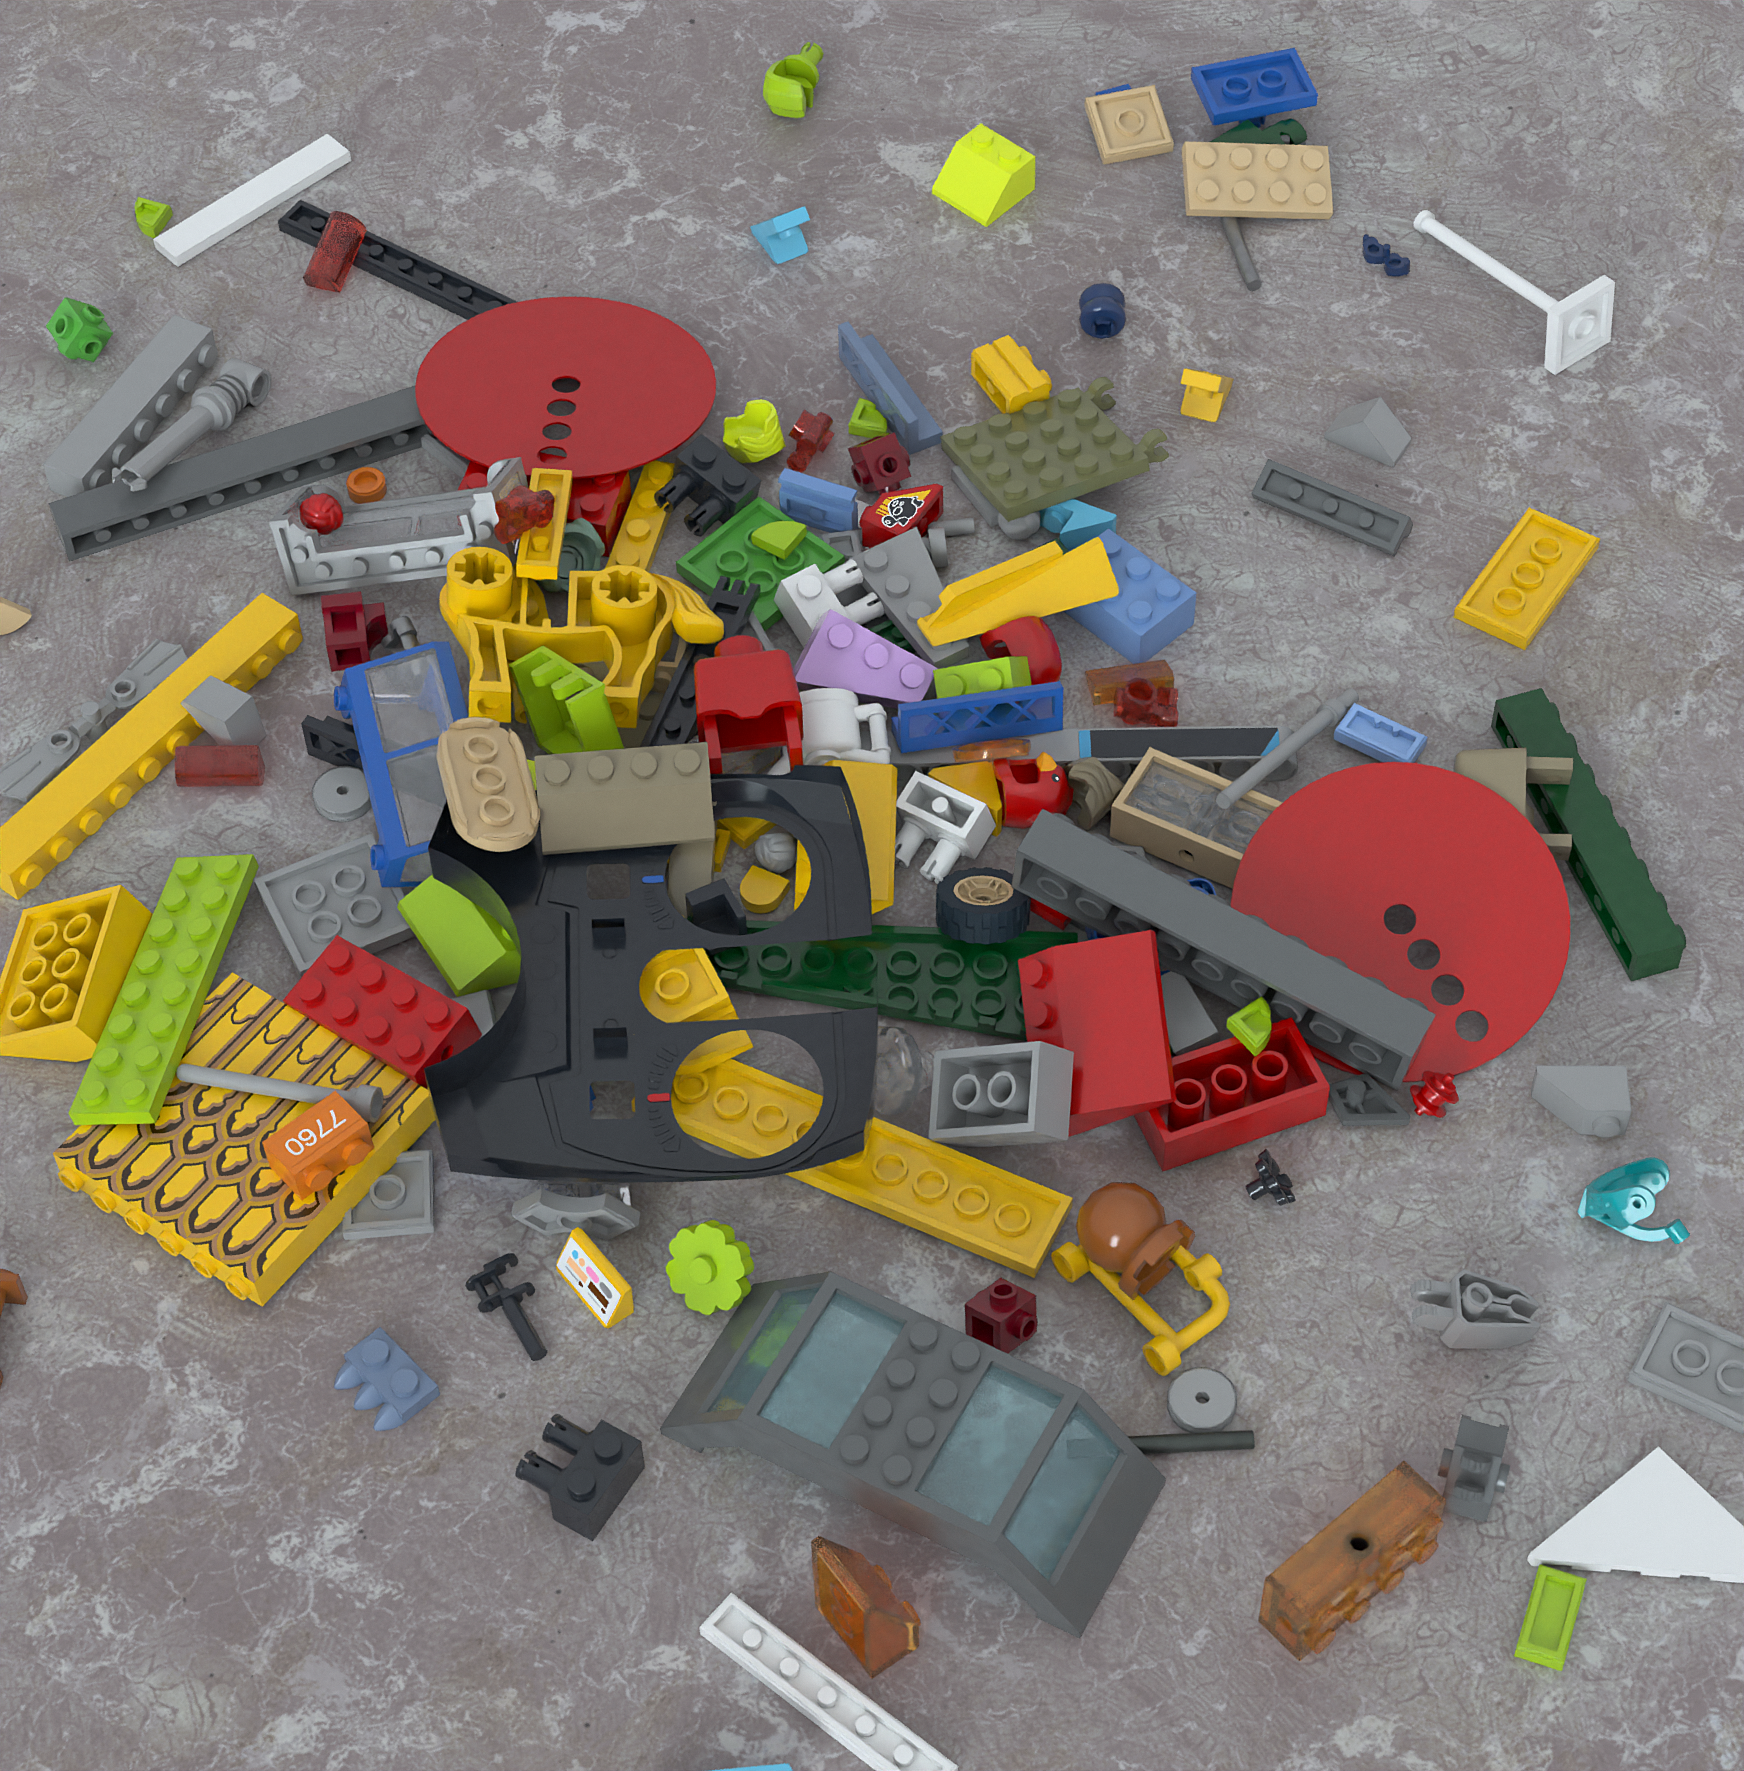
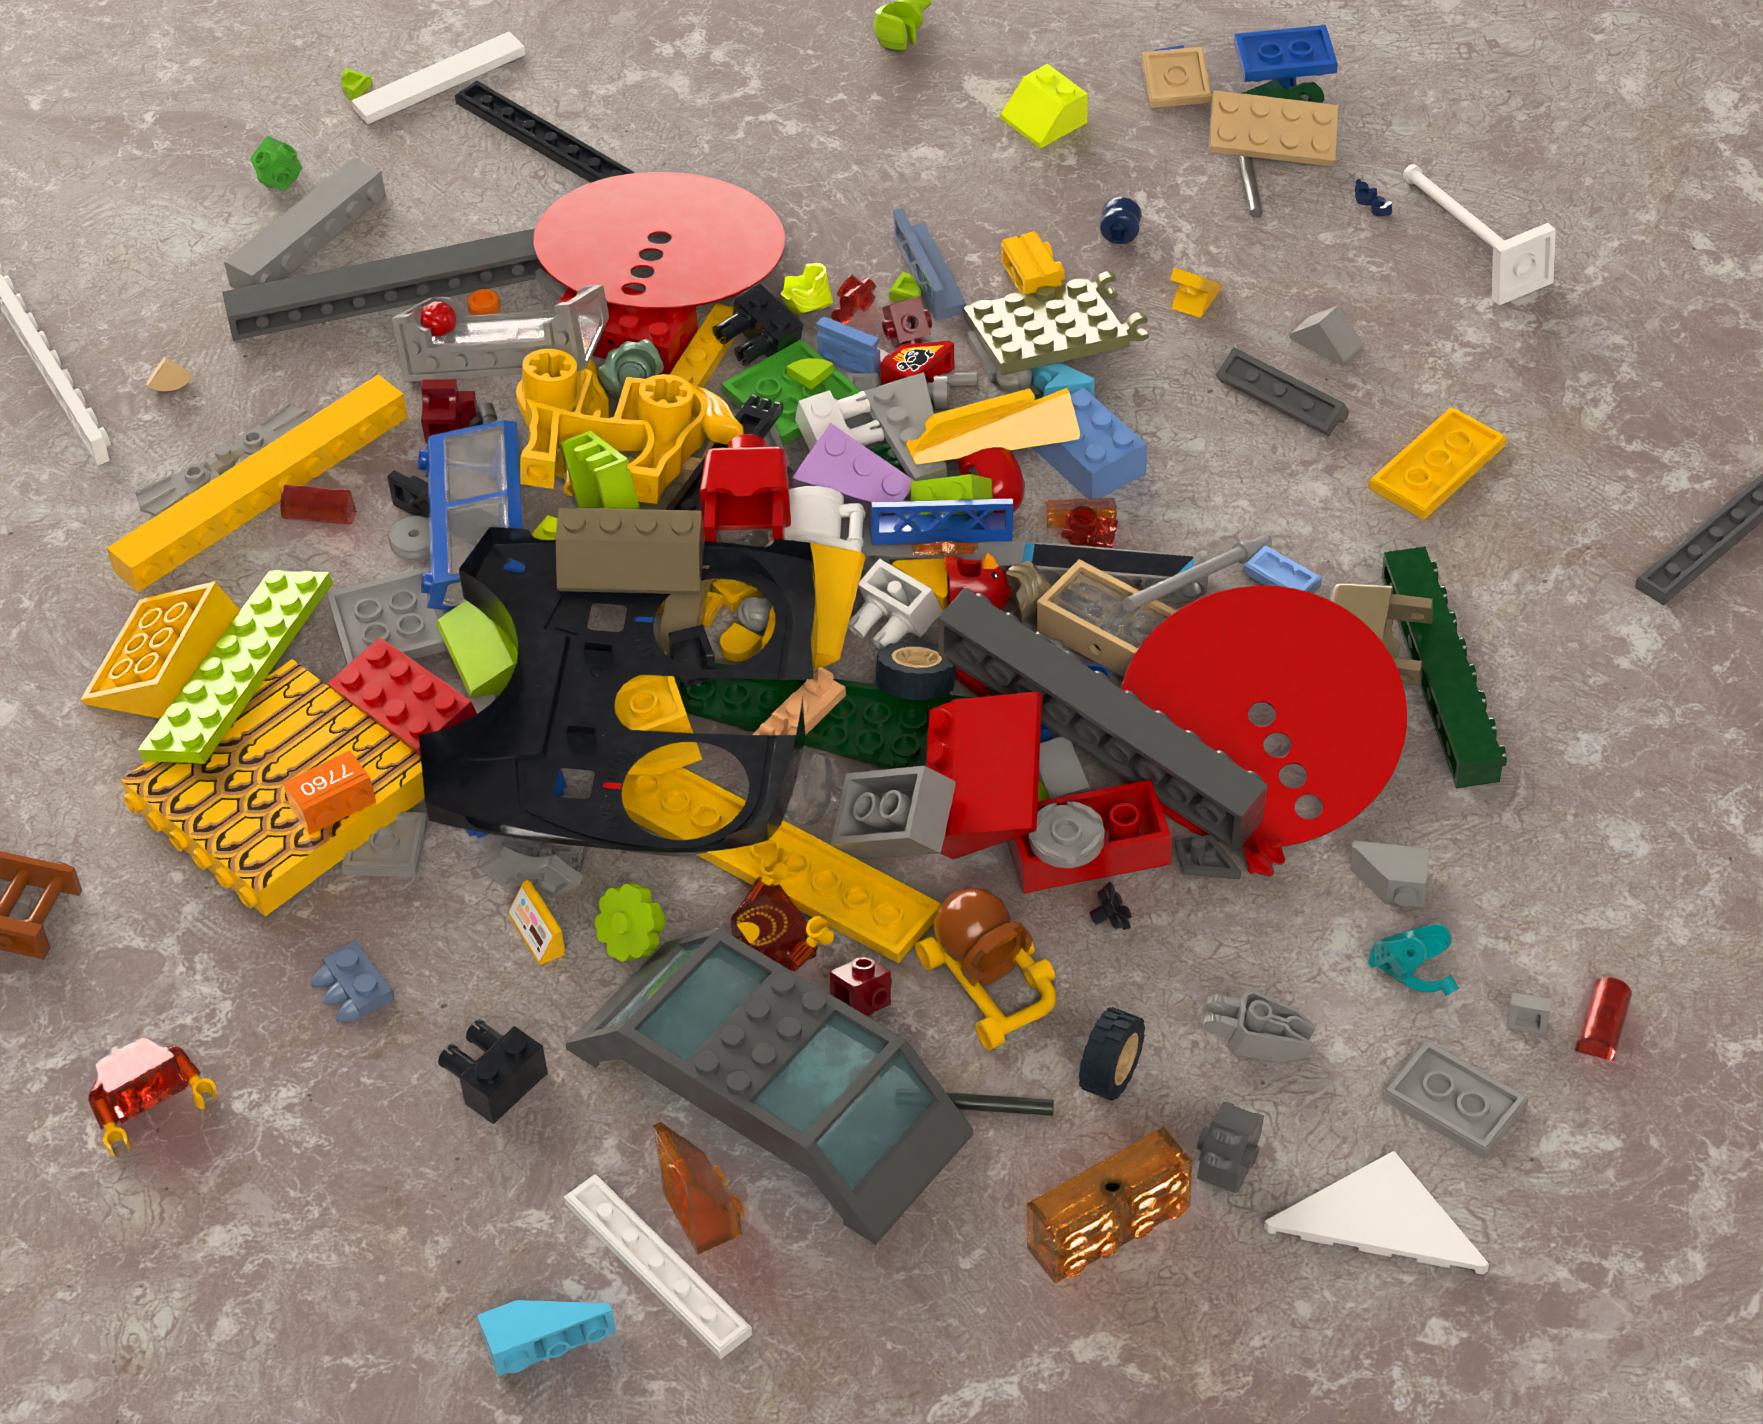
camera: 10 degrees right, 5 degrees down
(154, 1542) = (137, 1080): none -> clear red torso
(210, 410) = (368, 233): light grey piece -> none
(225, 713) = (329, 463): light grey slope -> none
(335, 252) = (495, 122): clear red brick -> none
(365, 1099) = (374, 762): light grey piece -> none
(488, 784) = (519, 528): tan tile -> none
(510, 1302) = (463, 933): black piece -> none
(521, 512) = (593, 324): clear red plate -> none
(542, 547) = (612, 338): yellow plate -> none
(782, 235) = (866, 139): medium azure slope -> none
(854, 975) = (819, 698): none -> light nougat plate
(880, 1250) = (774, 924): none -> clear red torso
(1206, 1384) = (1019, 1060): light grey piece -> none
(1211, 1100) = (1067, 835): none -> light grey tile
(1252, 1025) = (1115, 781): lime tile -> none
(1315, 1368) = (1111, 1053): none -> black wheel
(1550, 1617) = (1273, 1273): lime tile -> none

